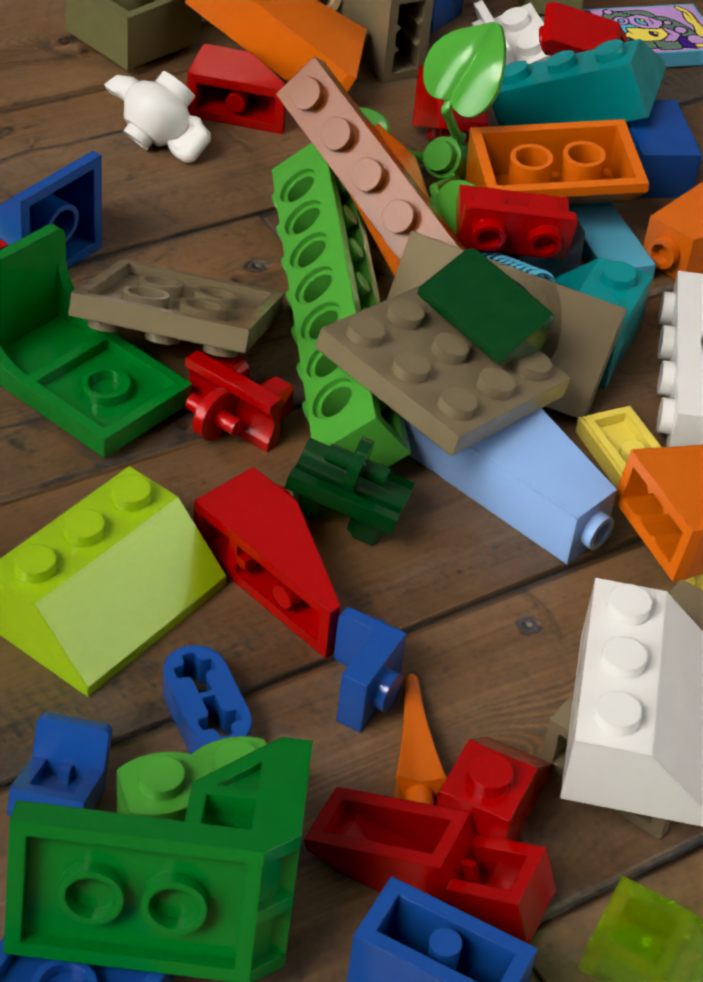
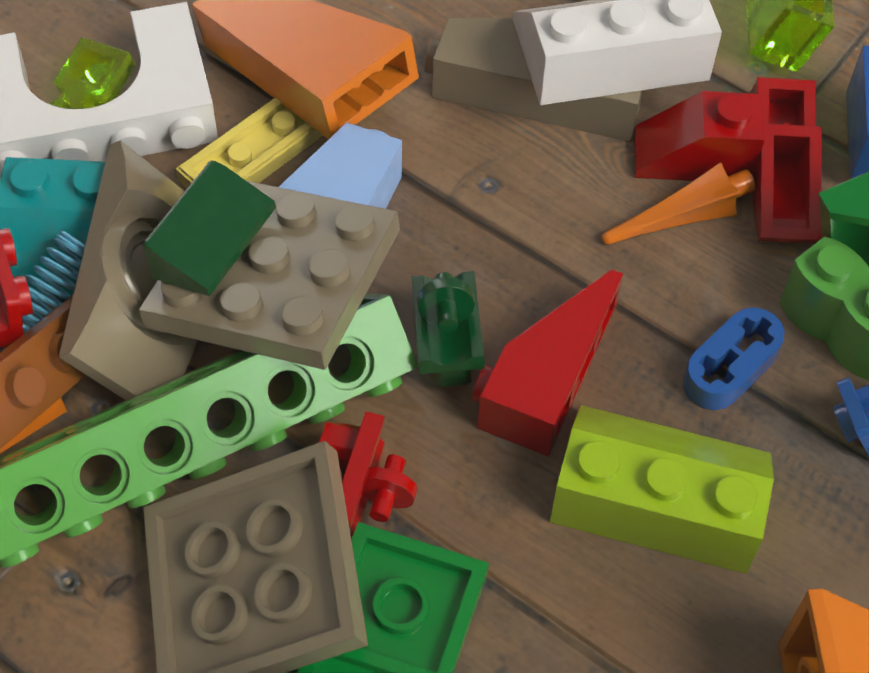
camera: 110 degrees left, 15 degrees up
(373, 670) = (640, 247): blue bracket -> none

